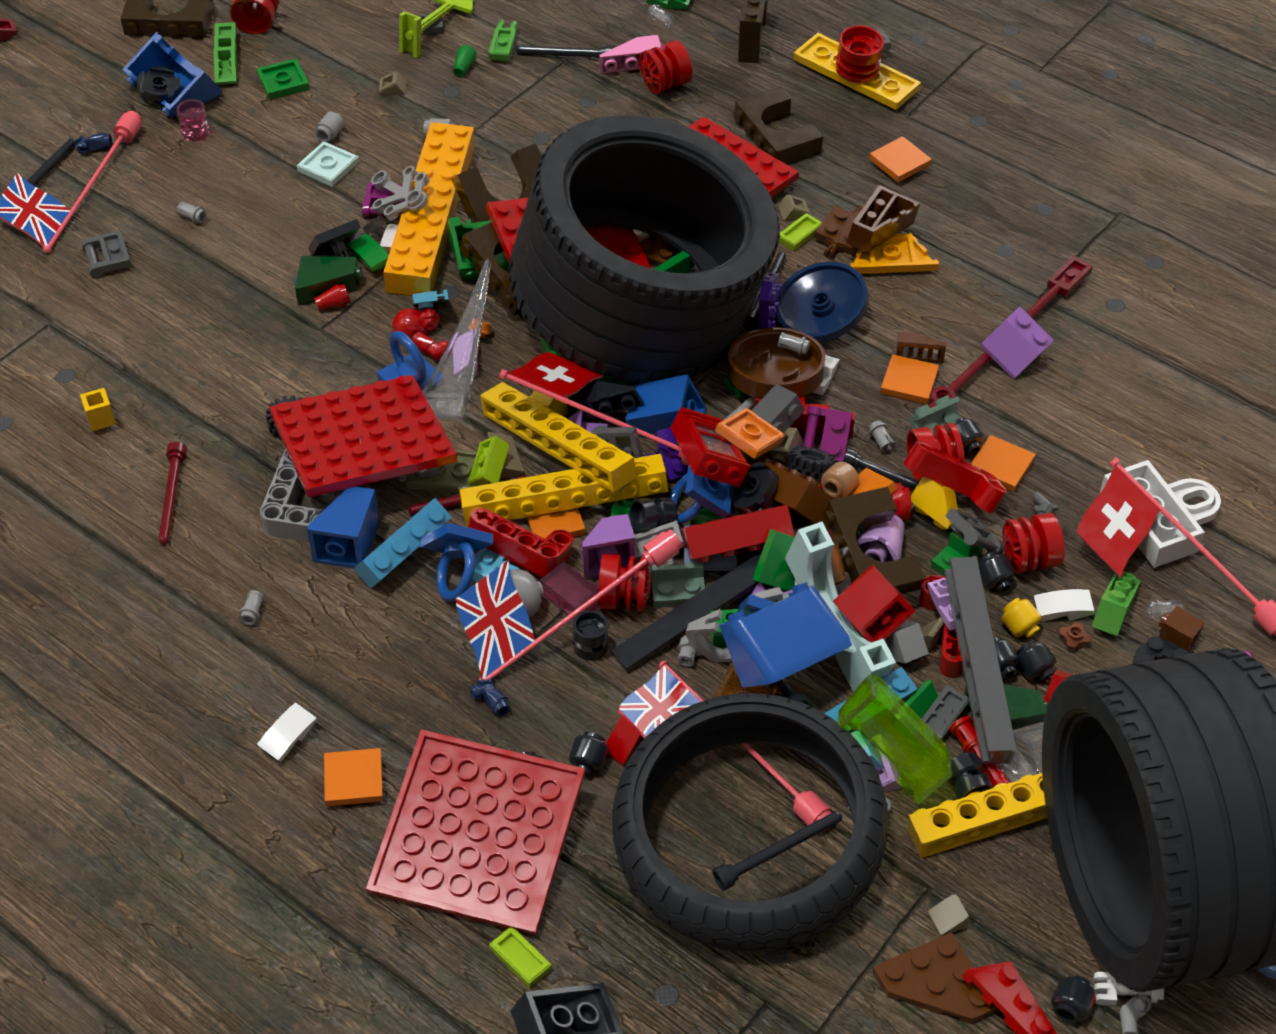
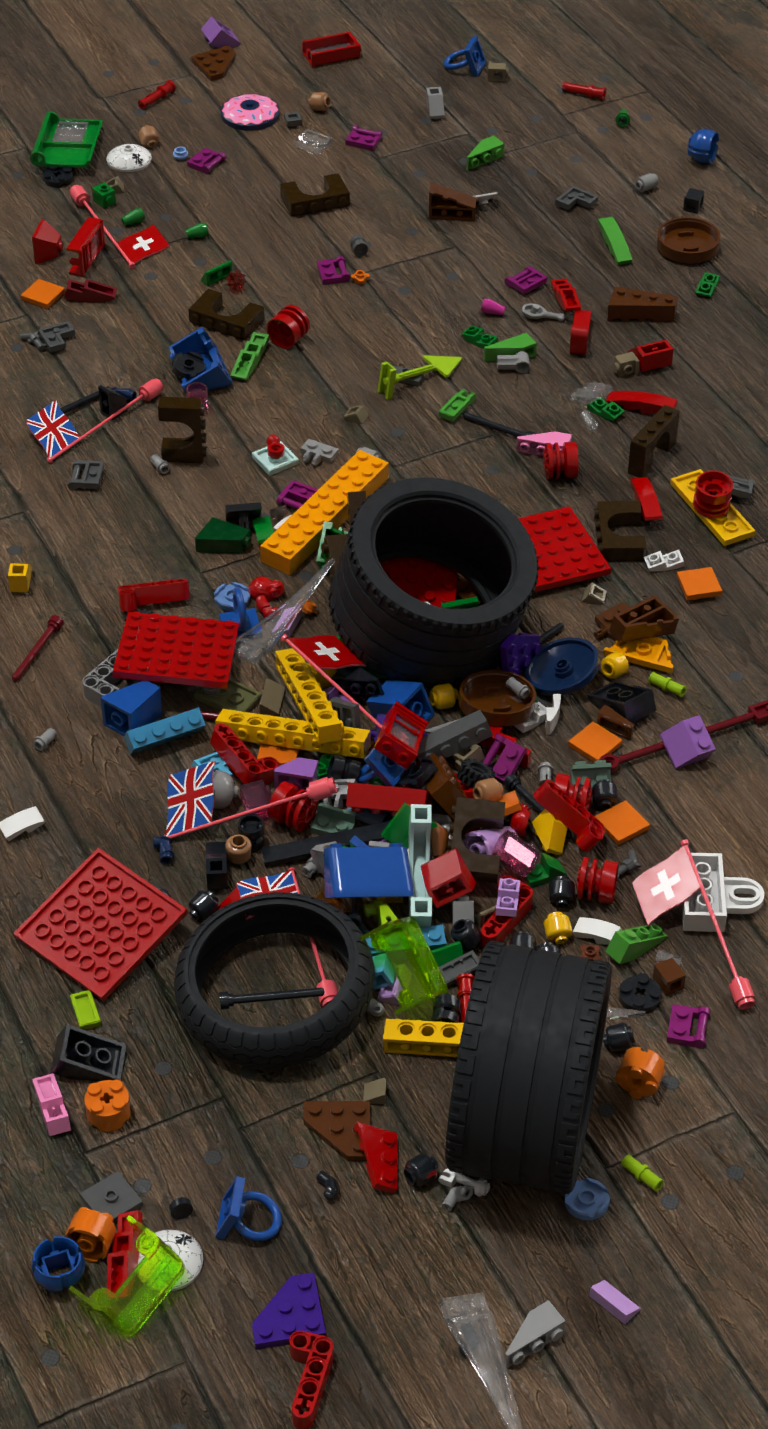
camera: 25 degrees right, 5 degrees down
(87, 155) = (110, 401): none -> black slope
(211, 135) = (190, 412): none -> dark brown arch
(279, 373) = (152, 592): none -> red beam
(282, 79) = (280, 387): green tile -> none
(326, 152) = (275, 448): none -> red plate
(329, 127) = (290, 432): light grey brick -> none
(332, 298) = (221, 553): red cone -> none
(353, 777) = (46, 865): orange tile -> none
(374, 346) = (224, 595): none -> medium blue tile
(375, 139) = (318, 452): none -> light grey hinge
(414, 200) = (309, 500): light grey plant -> none
(428, 298) = (282, 574): medium azure plate -> none
(456, 543) = (195, 742): blue tile -> none
(464, 59) = (418, 411): green cone -> none
(488, 461) = (254, 697): lime slope -> none
(572, 693) = (216, 866): none -> black slope
(588, 662) = (238, 849): none -> medium nougat head
(709, 382) = (443, 696): none -> yellow head
(750, 433) = (436, 735): orange tile -> none
(774, 76) = (648, 500): none -> red slope
(799, 232) = (584, 613): lime tile -> none
(816, 679) = (380, 910): none -> lime piece
(844, 361) = (552, 714): none -> white slope
(847, 146) = (658, 562): none -> white slope
(876, 280) = (614, 665): none -> yellow head
(919, 315) = (626, 699): none -> black slope
(927, 543) = (516, 853): none -> clear pink brick
(927, 665) = (466, 933): none -> black head
(943, 284) = (667, 684): none -> lime pin
(974, 531) = (561, 858): dark grey plate -> none
(980, 661) = (503, 917): dark grey tile -> none

